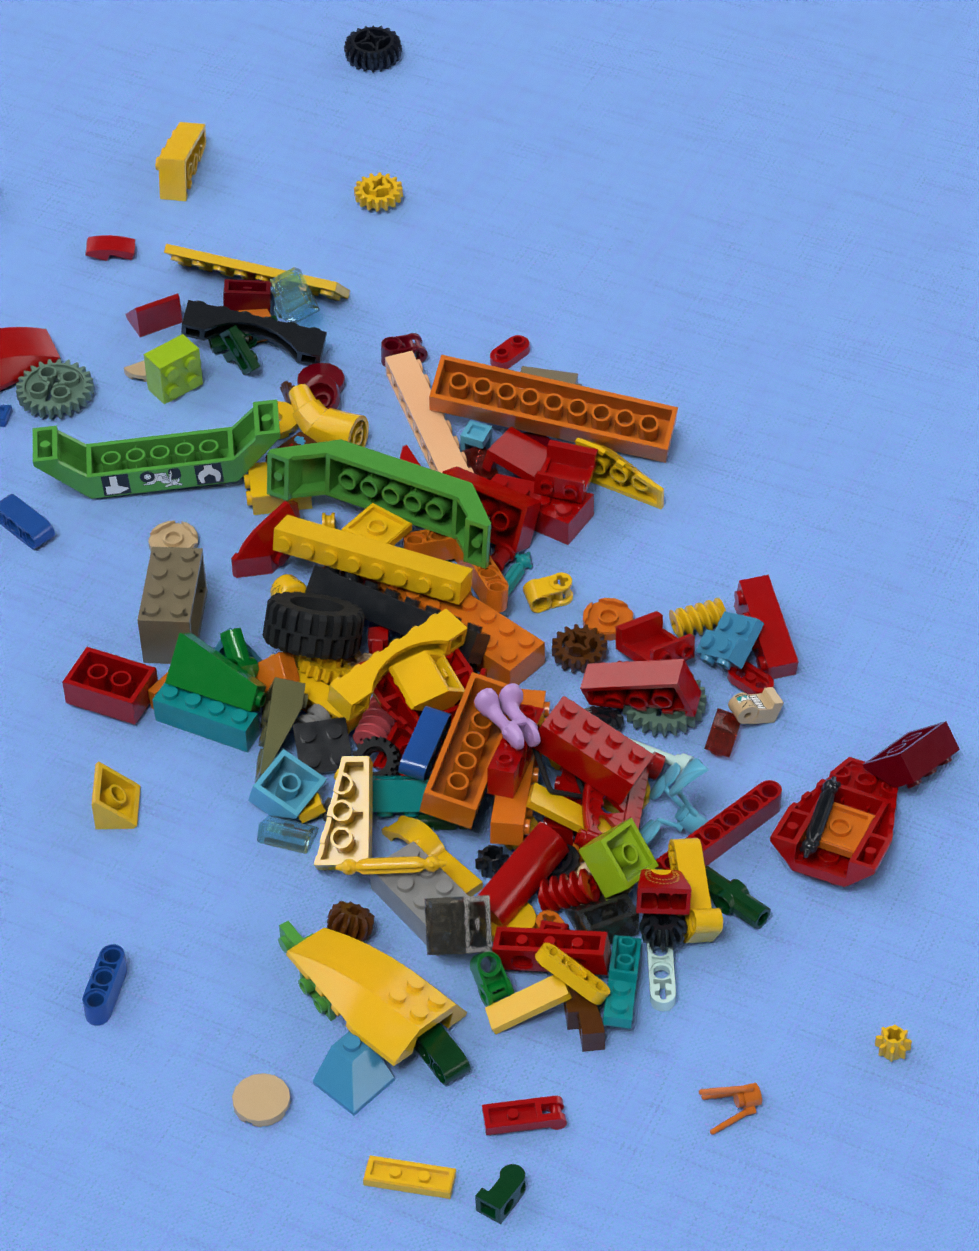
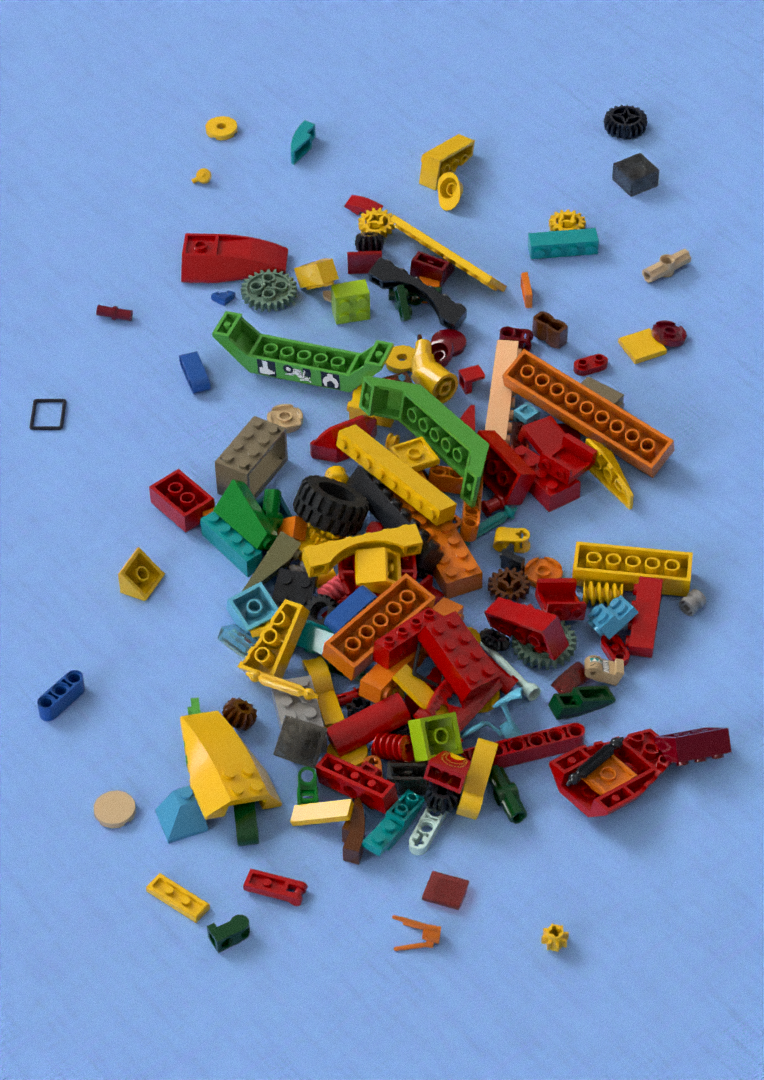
camera: 25 degrees right, 0 degrees up
(114, 346) = (316, 274): none -> yellow wedge
(141, 263) = (376, 222): none -> yellow gear
(148, 289) = (369, 241): none -> black gear
(209, 195) = (449, 191): none -> yellow piece
(293, 296) = (457, 278): clear light blue brick -> none
(376, 412) = (470, 375): none -> red panel
(379, 286) = (526, 290): none -> orange tile
(388, 217) = (563, 243): none -> teal brick
(425, 107) = (635, 174): none -> clear smoke brick
(440, 325) = (550, 329): none -> reddish brown brick
(470, 850) = (346, 697): none -> red pin
(508, 703) = (418, 601): lavender piece -> none
(529, 205) = (666, 265): none -> tan piece
(557, 310) = (641, 346): none -> yellow tile
(564, 616) = (511, 560): none -> black bracket
(572, 973) = (364, 814): yellow beam -> none
(580, 285) = (668, 333): none -> dark red tile
(713, 573) = (625, 564): none -> yellow brick
(729, 1038) = (445, 890): none -> clear red piece
(748, 755) = (580, 701): none -> dark green slope
(806, 592) = (694, 600): none -> light grey wheel

